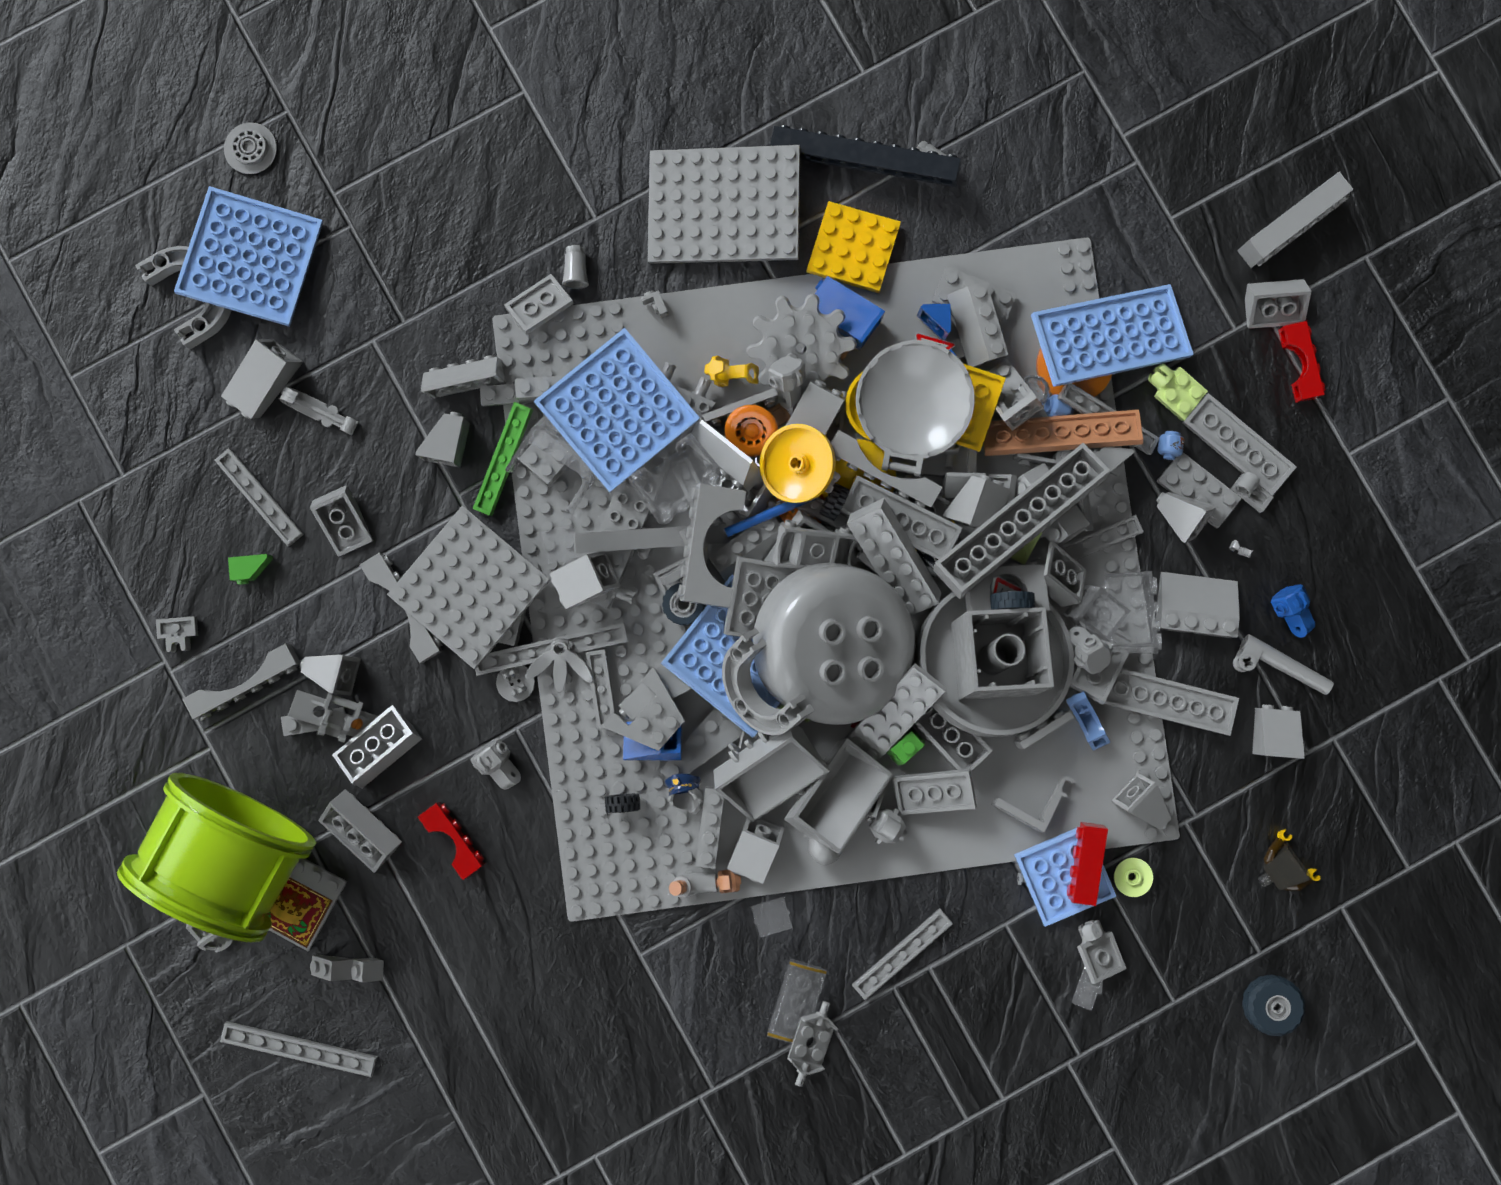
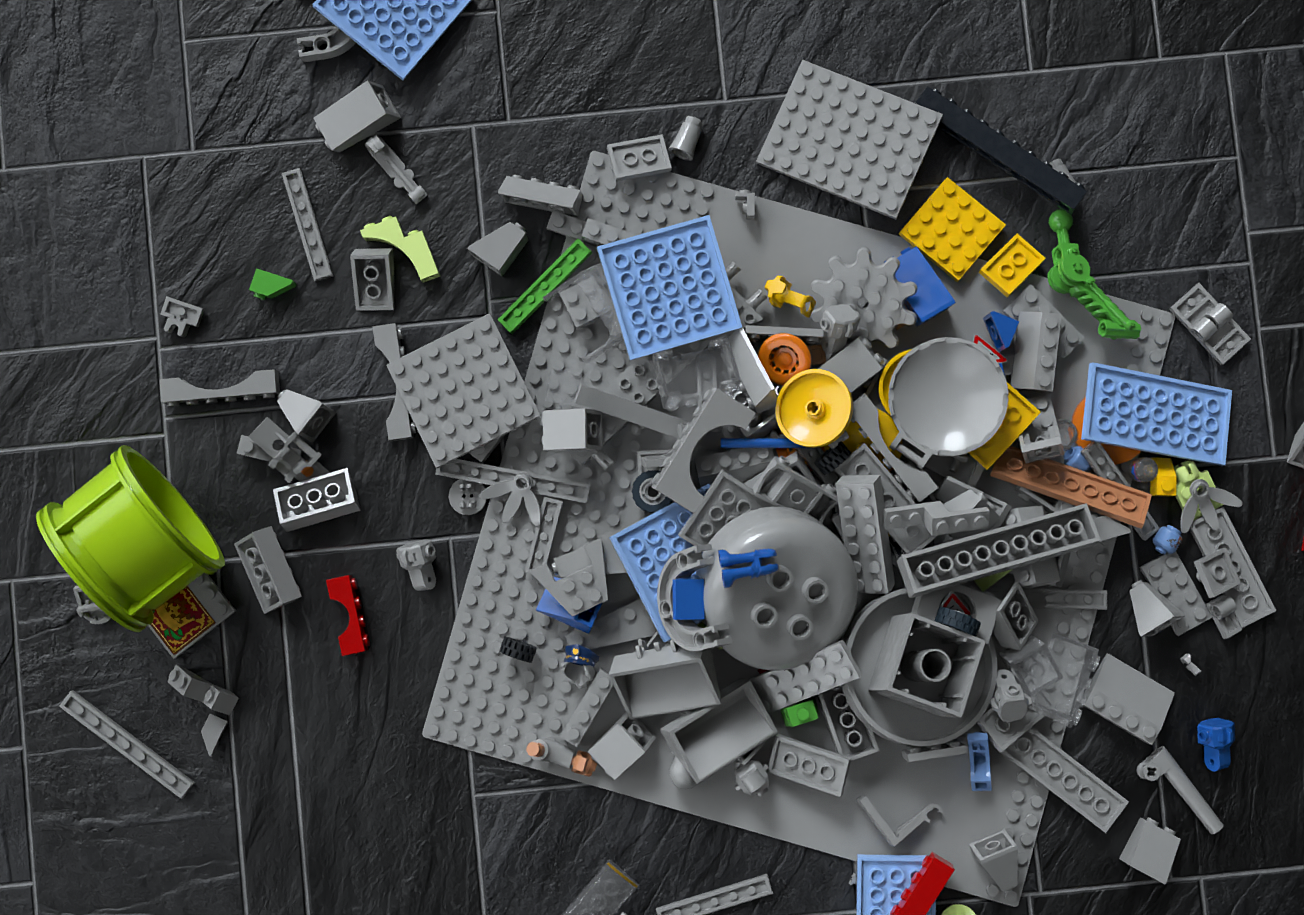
camera: 25 degrees right, 0 degrees up
(365, 474) = (413, 245): none -> yellowish green arch
(373, 1003) = (212, 732): none -> light grey slope
(757, 687) = (688, 598): none -> blue slope
(771, 917) = (609, 813): clear piece -> none
(806, 633) = (756, 569): none -> blue piece
(922, 256) = (1011, 265): none -> yellow plate
(952, 515) = (936, 518): none -> light grey bracket
(981, 242) = (1073, 276): none -> bright green piece
(1121, 391) = (1143, 470): none -> clear head
(1124, 232) = (1210, 323): none -> light grey plate
(1142, 390) = (1165, 481): none -> yellow slope
(1186, 394) = (1206, 508): none -> light grey plant
(1228, 455) = (1216, 572): none -> light grey tile

